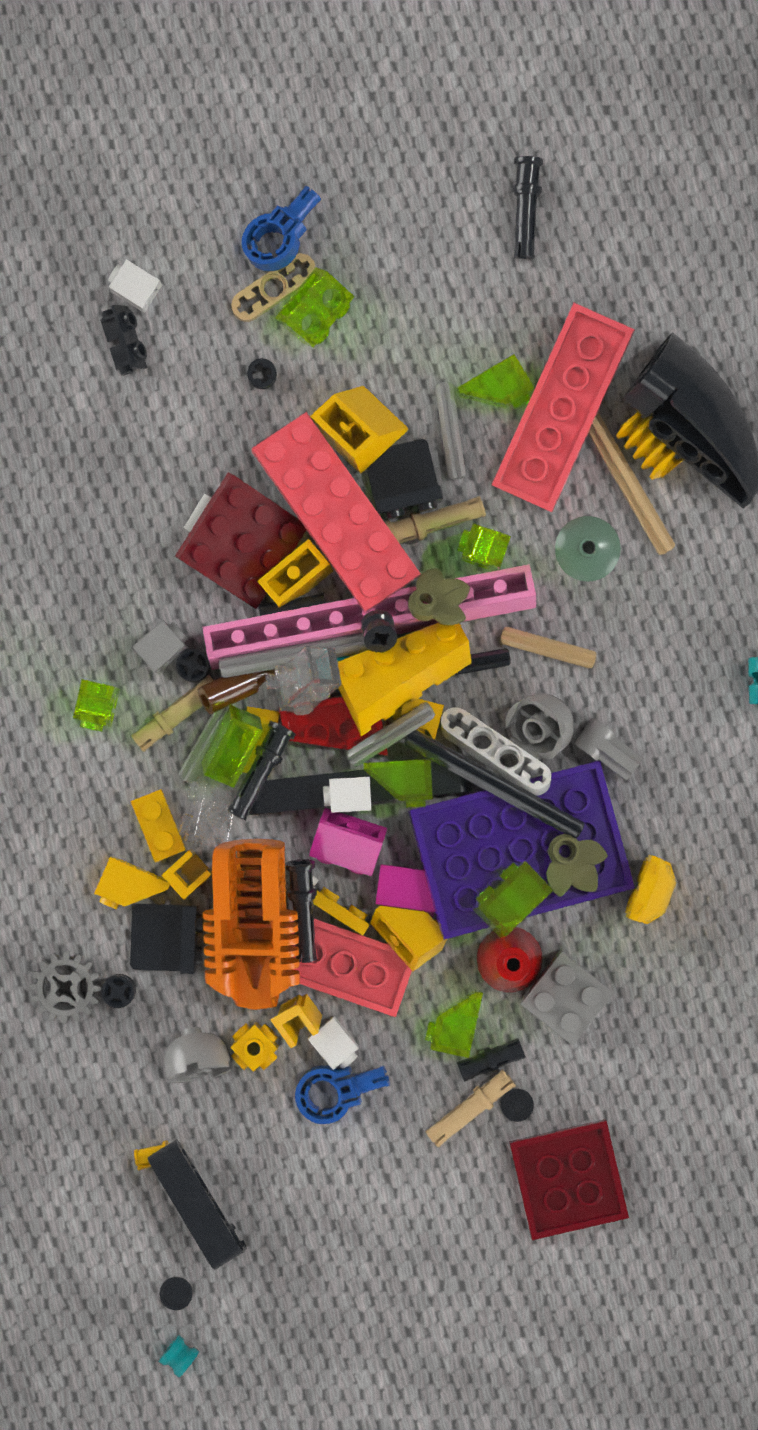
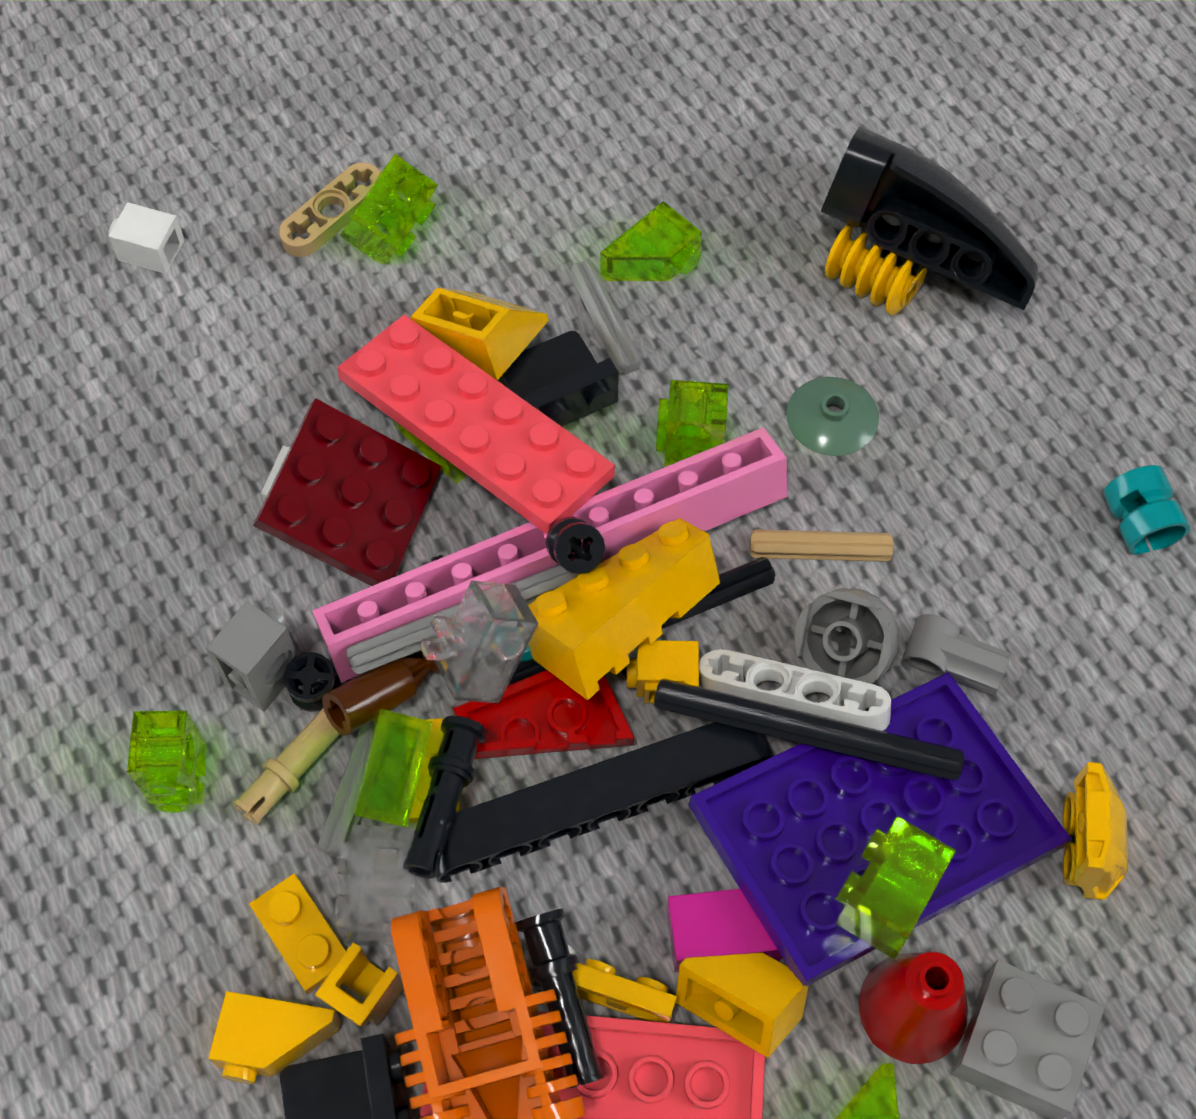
camera: 15 degrees left, 25 degrees down
(121, 324) = (134, 288): black hinge -> none
(266, 365) = (341, 293): black bush -> none
(282, 221) = (328, 138): blue pin -> none
(296, 574) = (439, 514): yellow slope -> none
(348, 794) = (590, 794): white brick -> none
(348, 842) = (607, 880): dark pink brick -> none
(390, 734) = (630, 697): light grey axle -> none
(404, 779) = (667, 751): clear neon green slope -> none
(419, 525) = (601, 428): tan pin -> none
(442, 596) = (640, 489): olive plate -> none
(527, 191) = (625, 51): black pin -> none
(563, 407) = (745, 253): coral plate -> none
(577, 868) = (976, 818): olive plate -> none
(630, 486) = (843, 313): tan axle -> none

